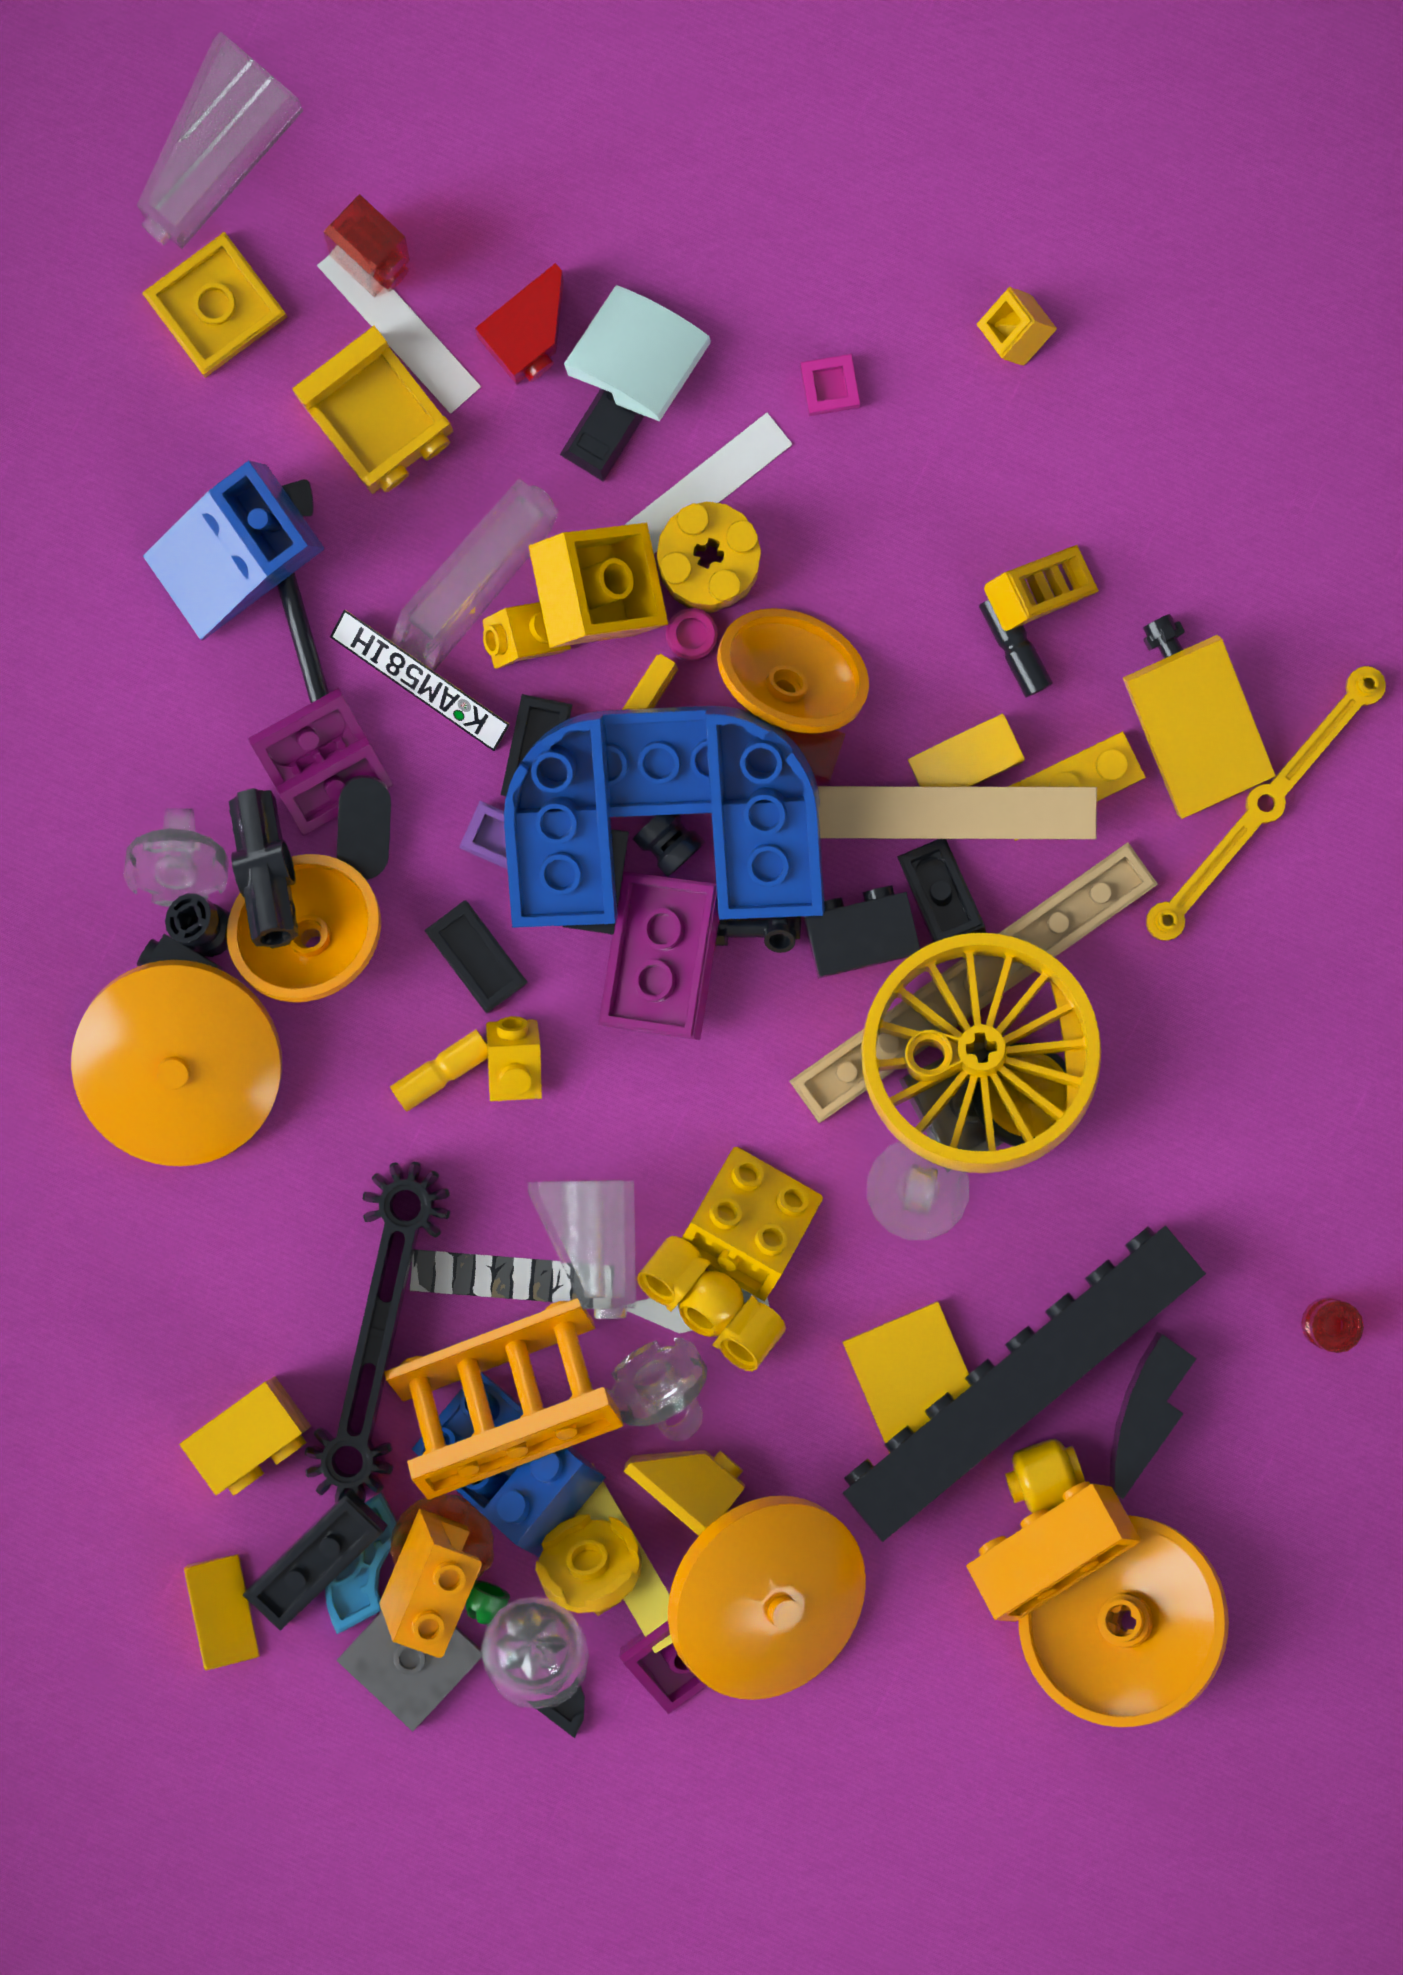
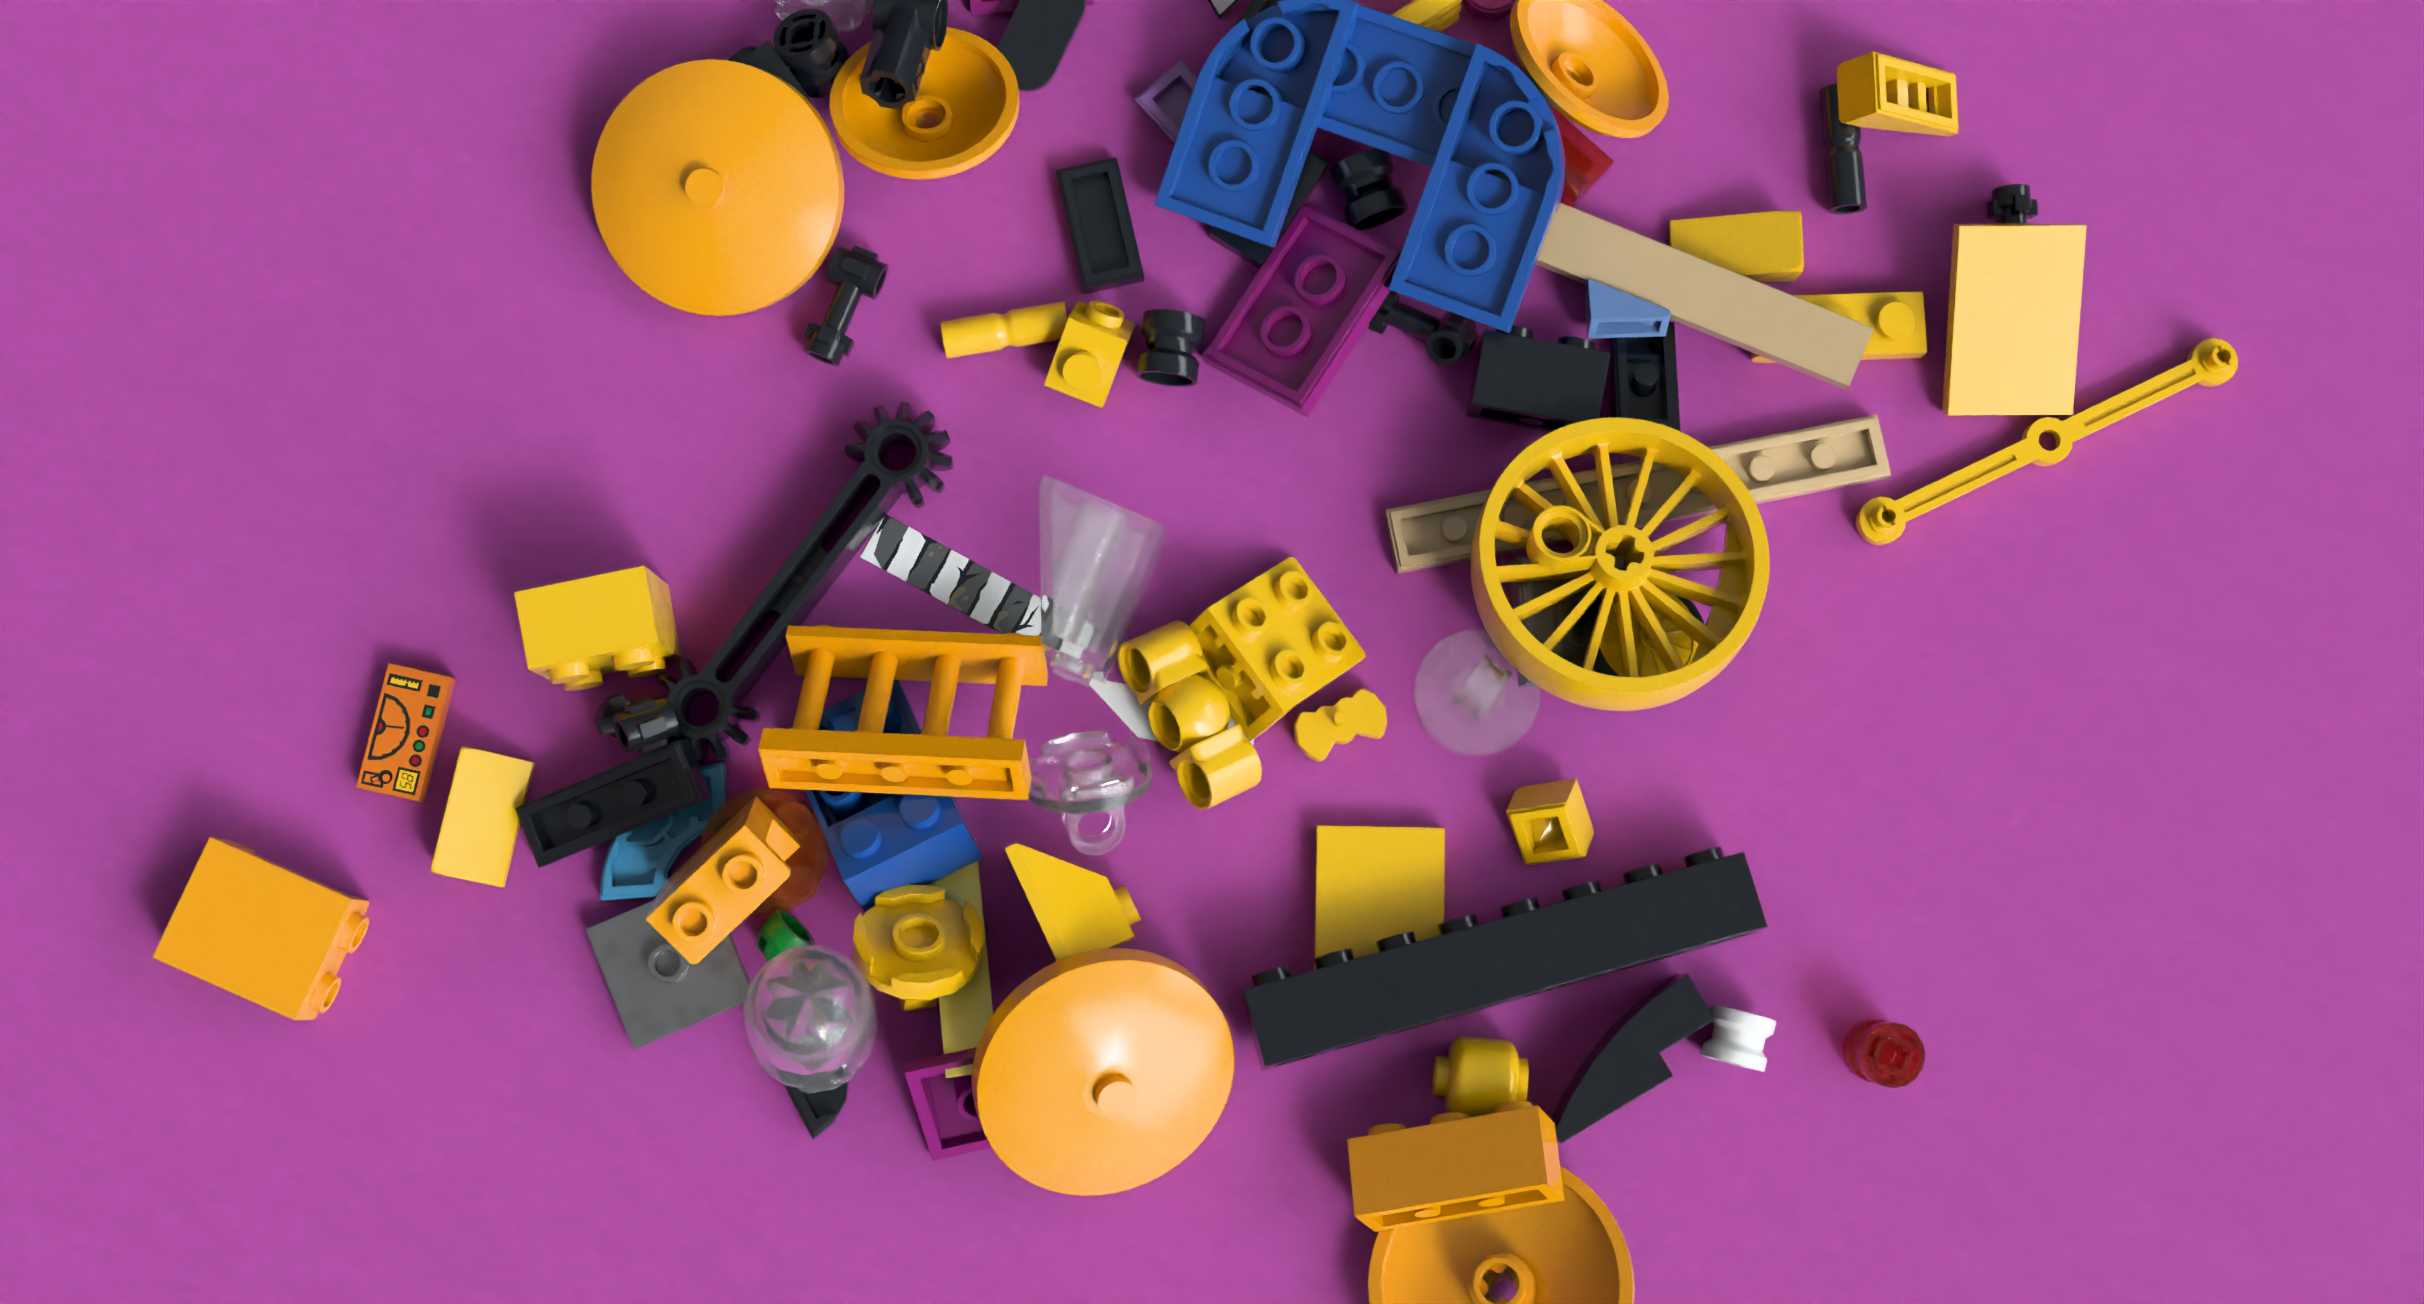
camera: 20 degrees right, 5 degrees down
(101, 1768) = (263, 931): none -> light orange panel
(133, 1575) = (406, 733): none -> orange tile
(309, 1496) = (637, 724): none -> black bar
(310, 1079) = (856, 274): none -> black bar
(573, 1030) = (1171, 341): none -> black wheel
(814, 1267) = (1339, 724): none -> yellow piece
(901, 853) = (1621, 315): none -> medium blue piece
(1014, 1261) = (1550, 821): none -> yellow slope
(1221, 1361) = (1738, 1038): none -> white wheel

